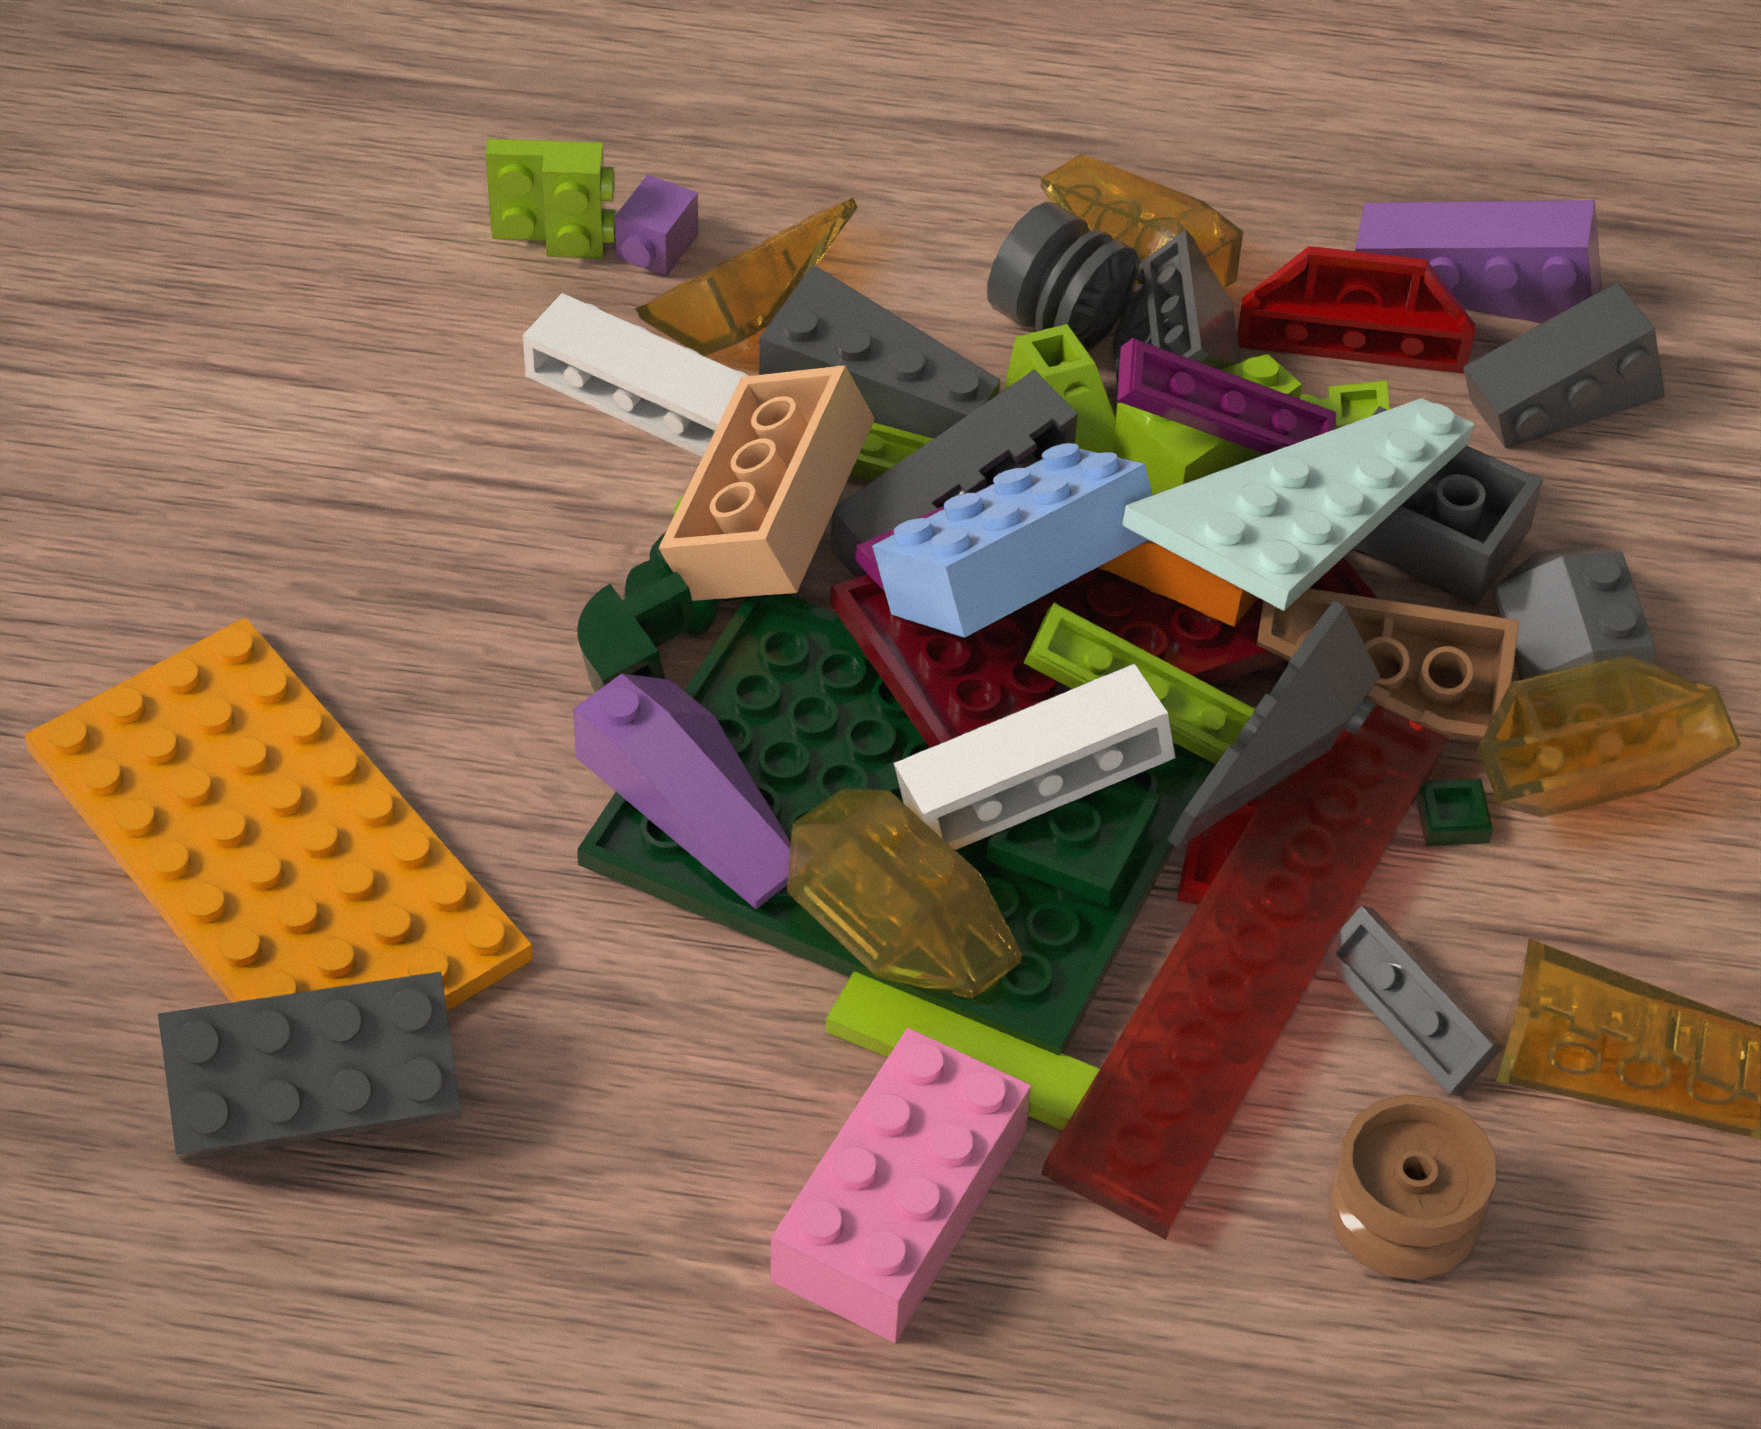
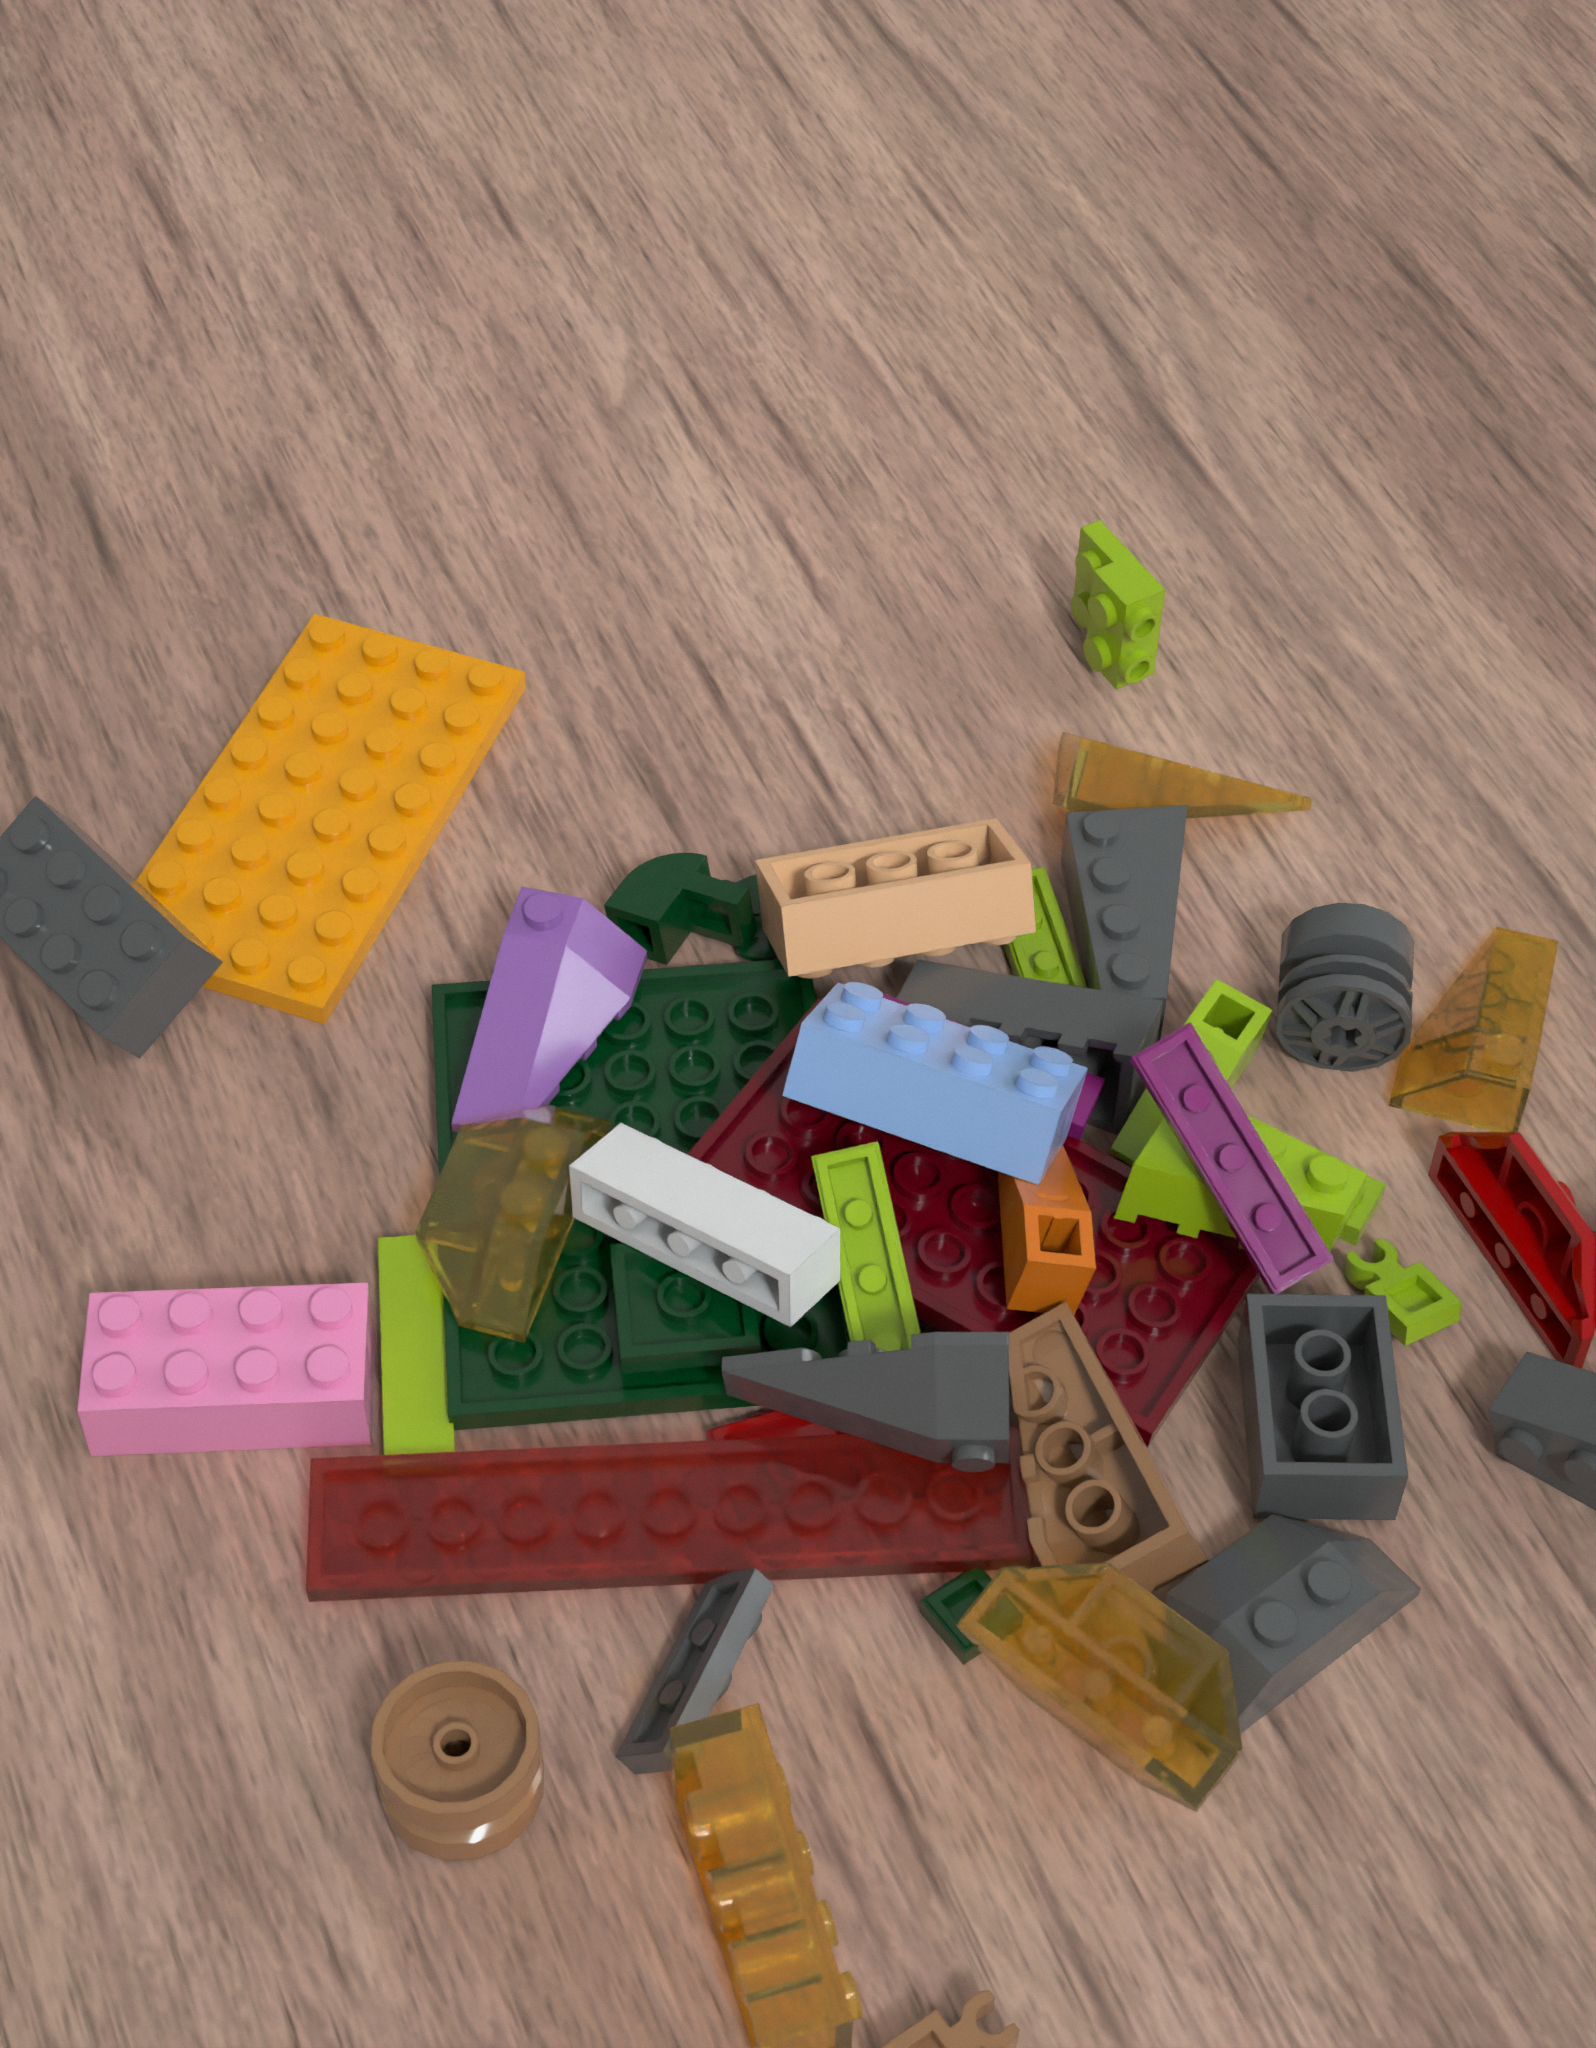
camera: 60 degrees right, 0 degrees up
(629, 373) = (983, 752): white brick -> none
(656, 225) = (1164, 695): medium lavender brick -> none
(1180, 307) = (1369, 1102): dark grey wedge -> none
(1303, 507) = (1130, 1265): light aqua wing -> none

